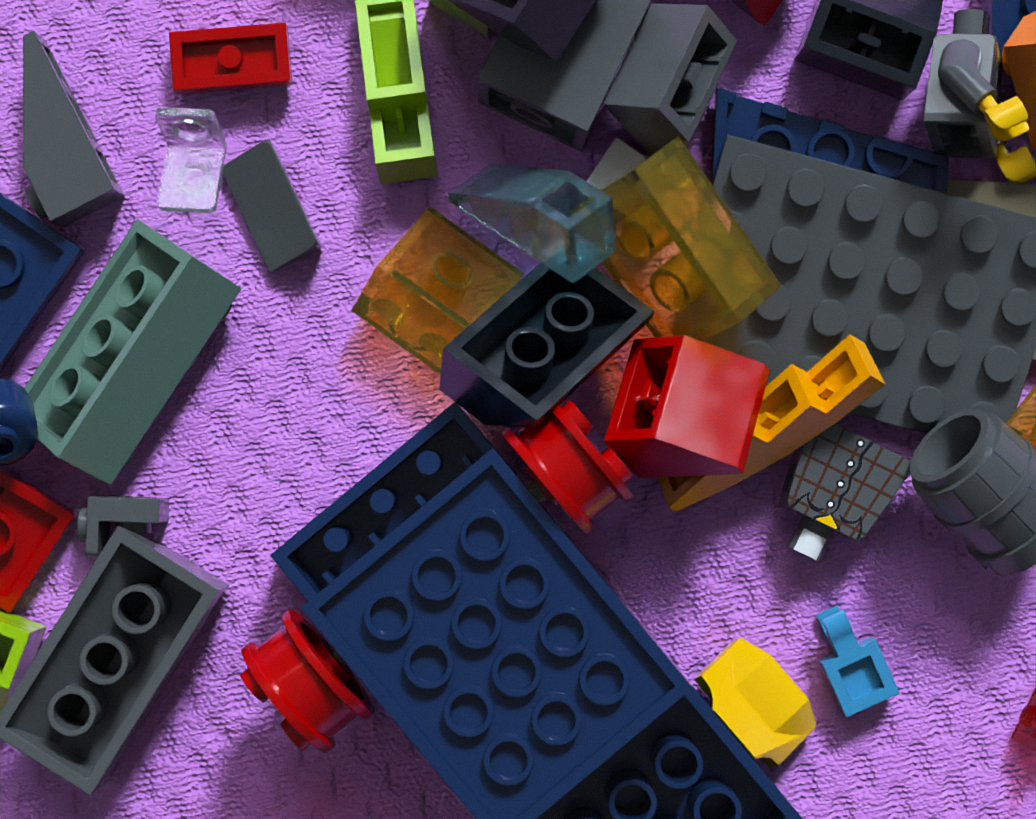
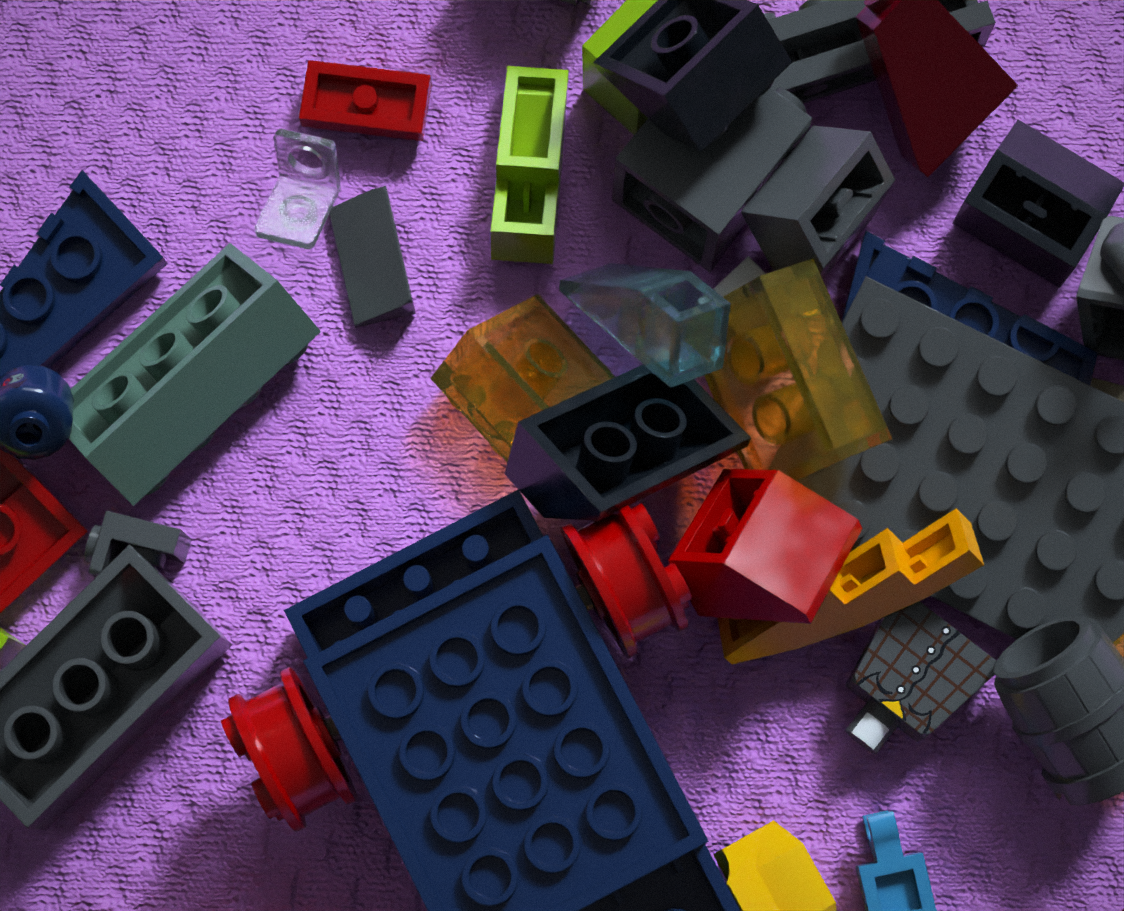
camera: 15 degrees right, 10 degrees down
(59, 147) = (167, 152): dark grey slope -> none

